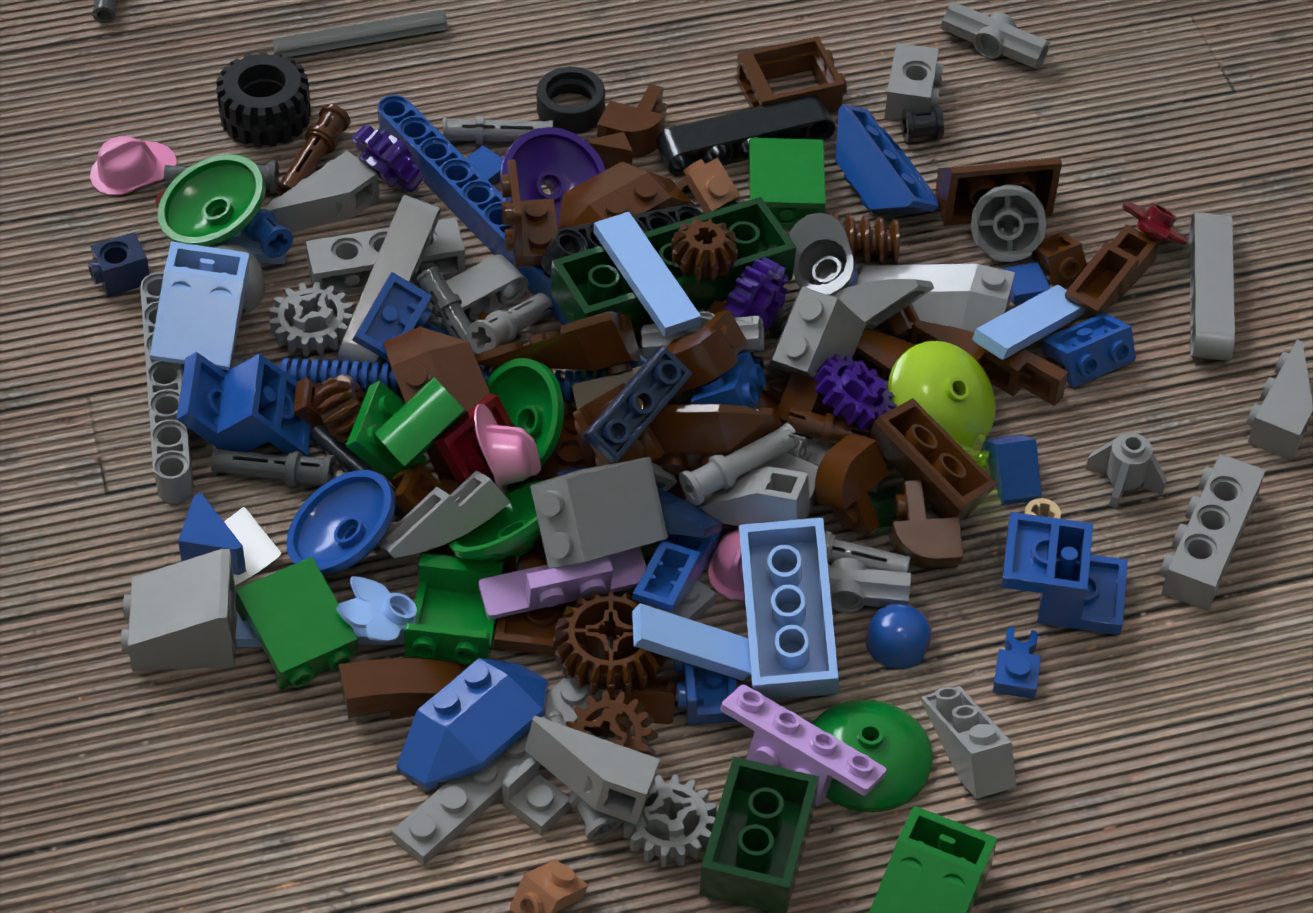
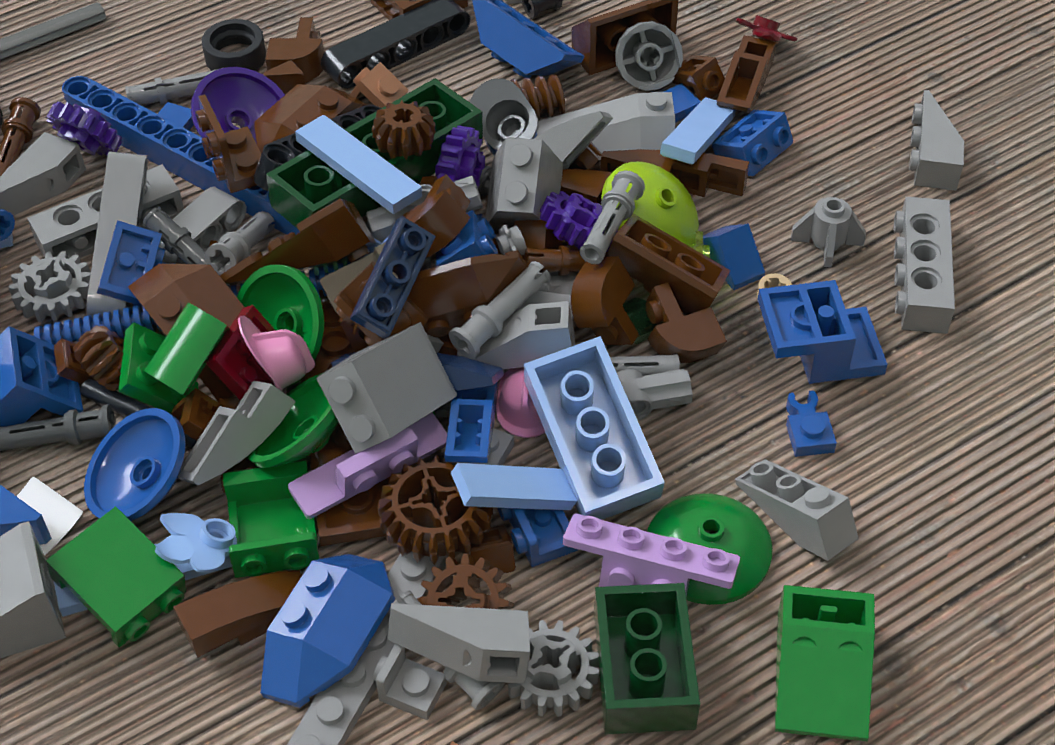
camera: 15 degrees left, 0 degrees up
(778, 396) = (511, 240): none -> light grey plate
(788, 177) = (448, 58): green panel -> none
(858, 422) = (596, 245): none -> light grey pin
(898, 636) = (693, 429): blue hair -> none
(1211, 286) = (832, 69): light grey beam -> none

